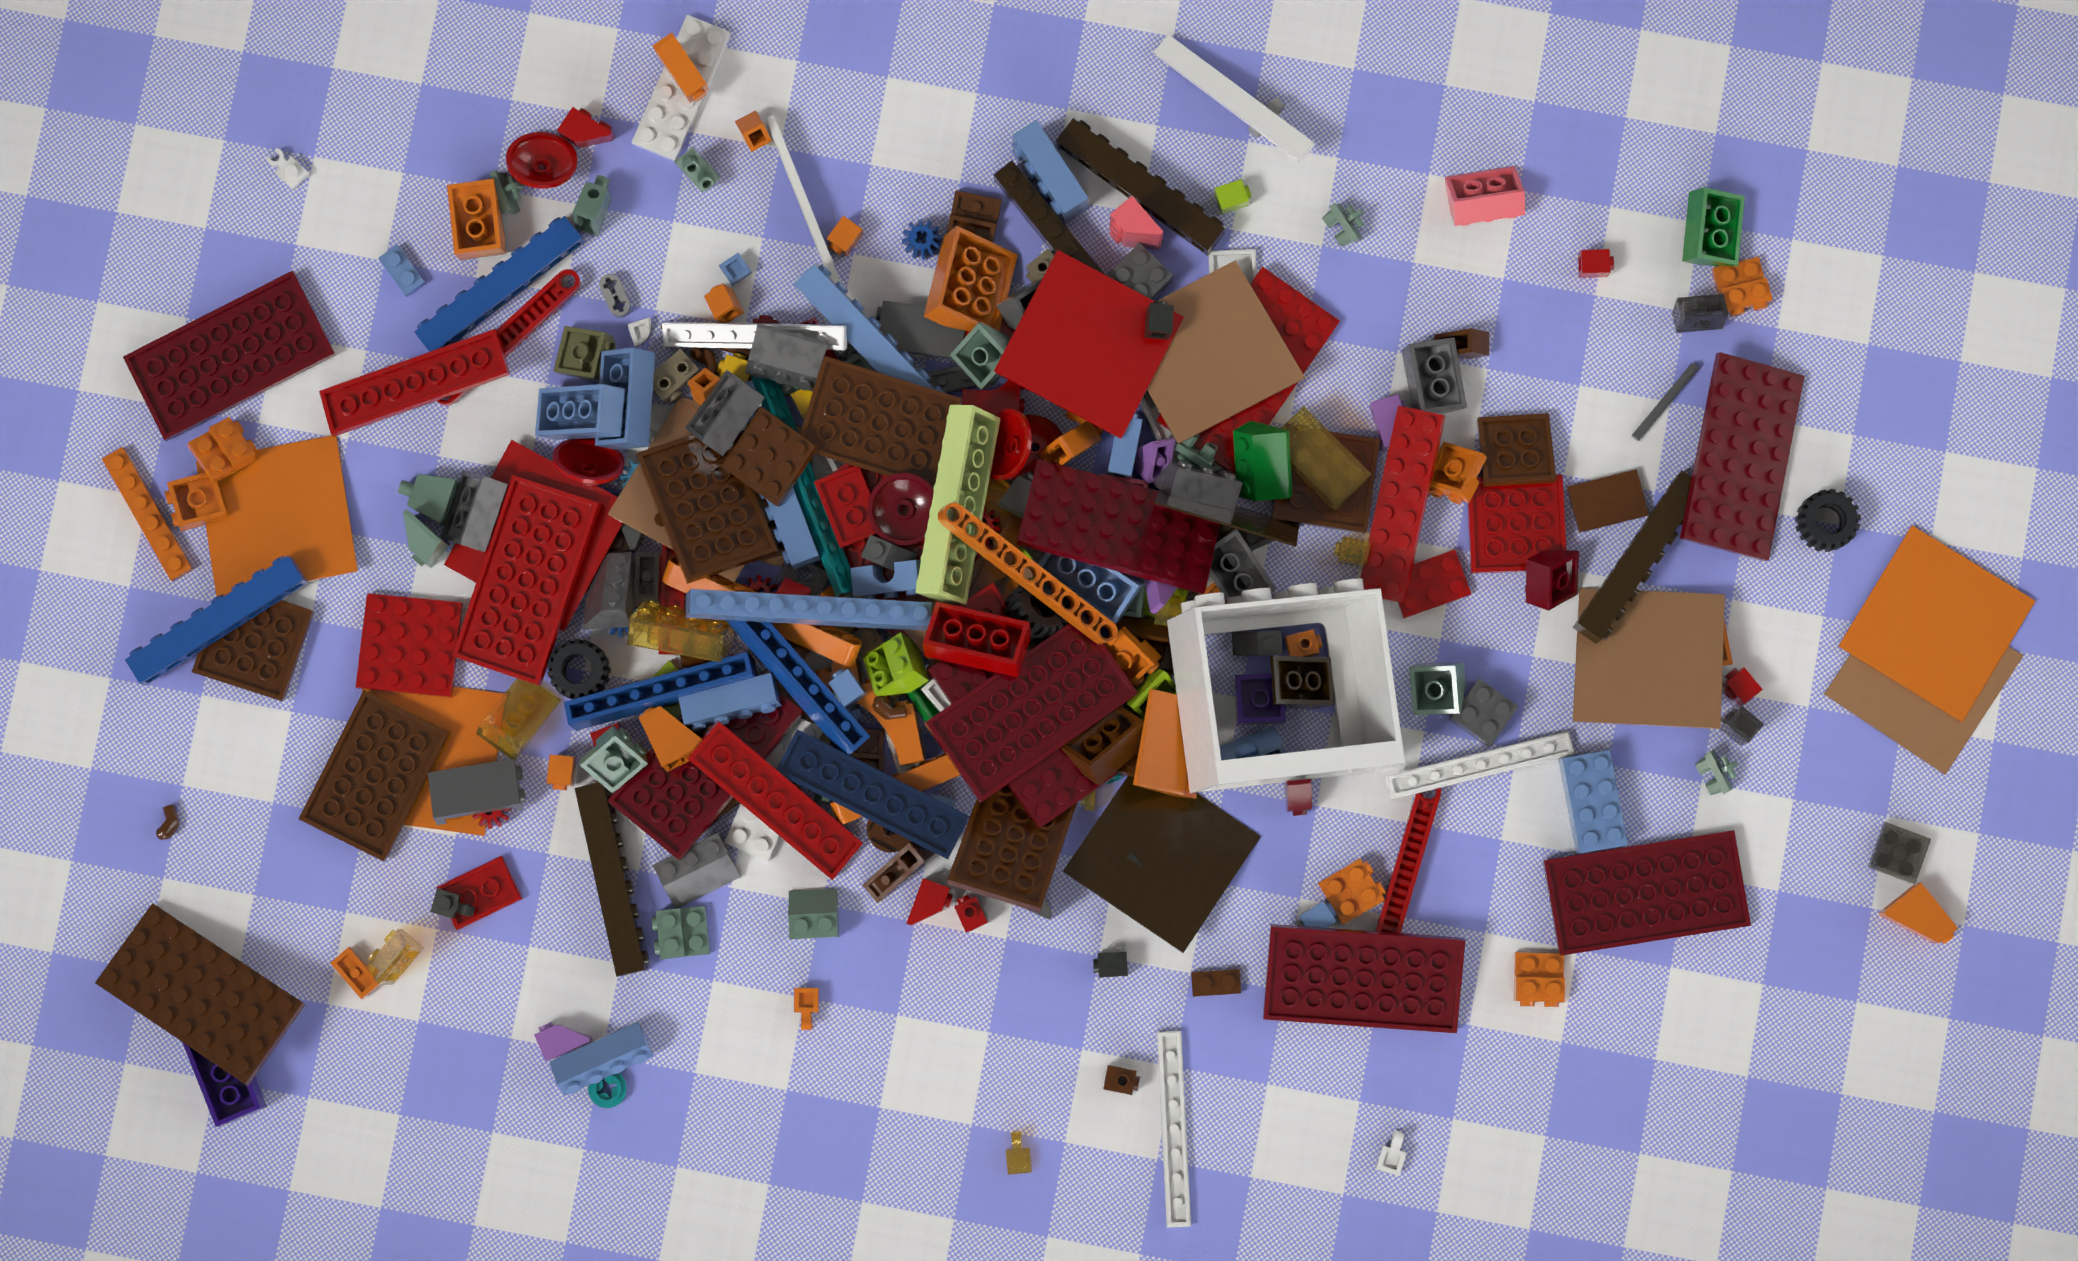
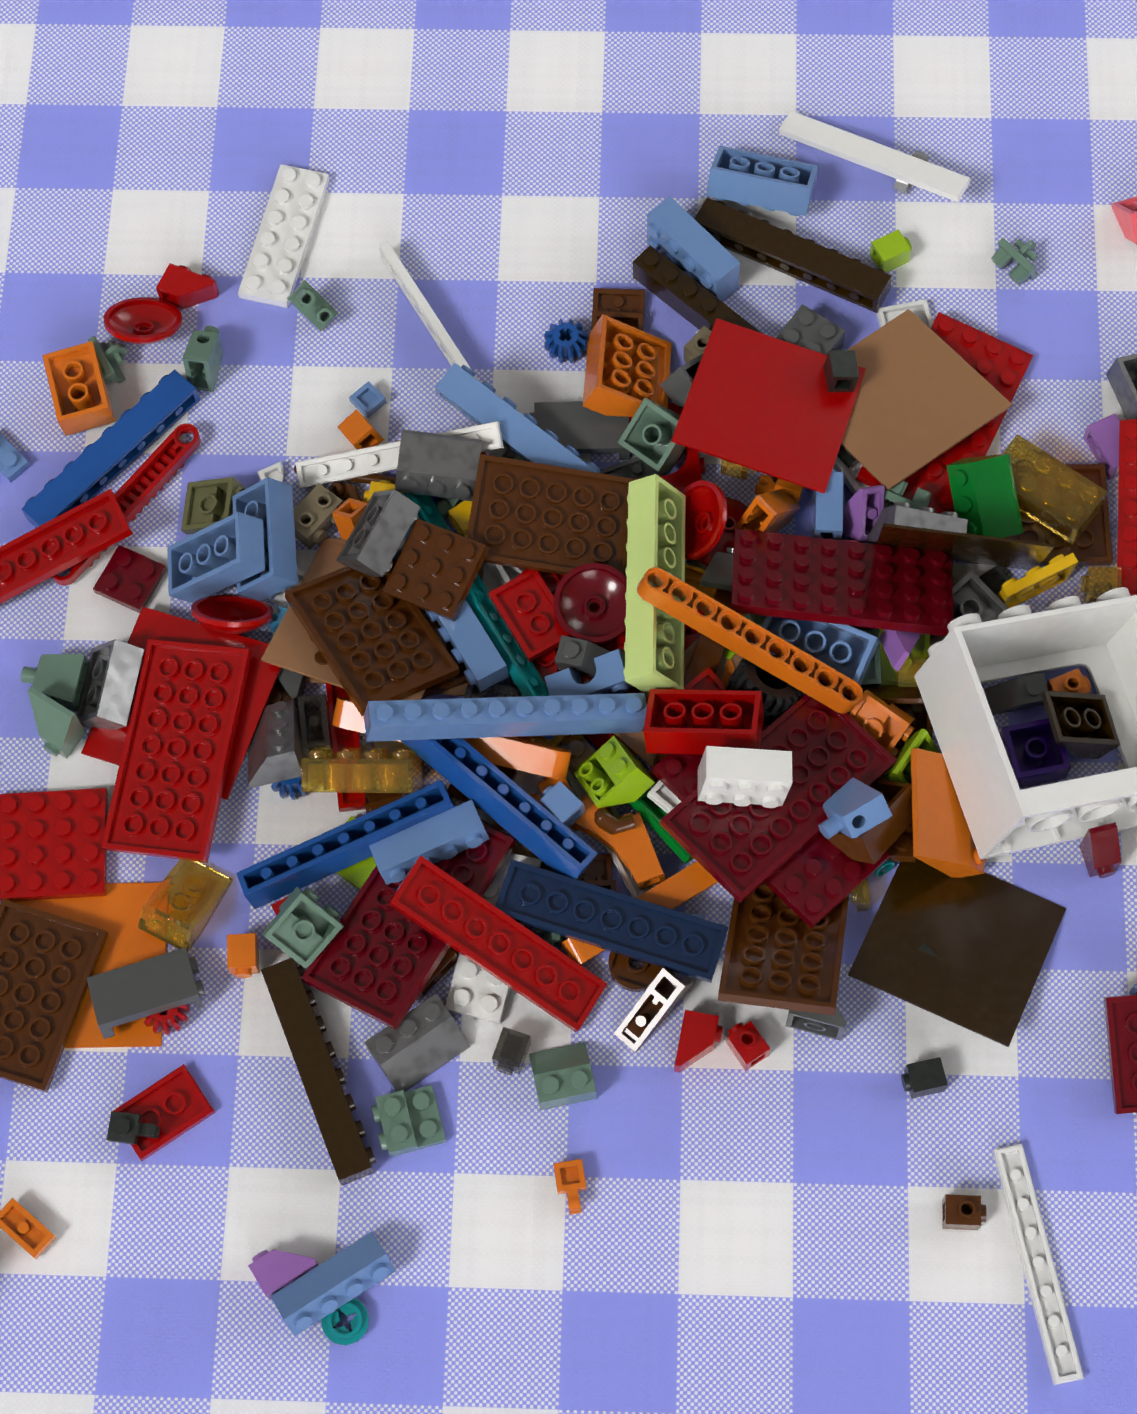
camera: 10 degrees left, 15 degrees down
(394, 957) = (69, 1199): clear yellow slope -> none
(503, 409) = (129, 579): none -> dark red plate
(564, 655) = (245, 818): black tyre -> none
(610, 298) = (235, 448): light grey beam -> none
(668, 737) = (364, 892): orange slope -> none
(681, 68) = (280, 205): orange slope -> none
(753, 131) = (367, 260): orange brick -> none
(773, 889) = (511, 1051): none -> clear smoke brick
(844, 236) = (482, 349): orange brick -> none
(1000, 699) = (744, 776): none -> white brick
(1018, 1158) = (858, 1327): clear yellow plate -> none
(1088, 739) = (854, 810): none -> medium blue torso
(1126, 109) = (762, 181): none -> medium blue brick
(1134, 225) = (795, 282): coral slope -> none
(1216, 982) = (1050, 1082): reddish brown plate -> none
(1312, 537) = (1037, 580): none -> yellow plate

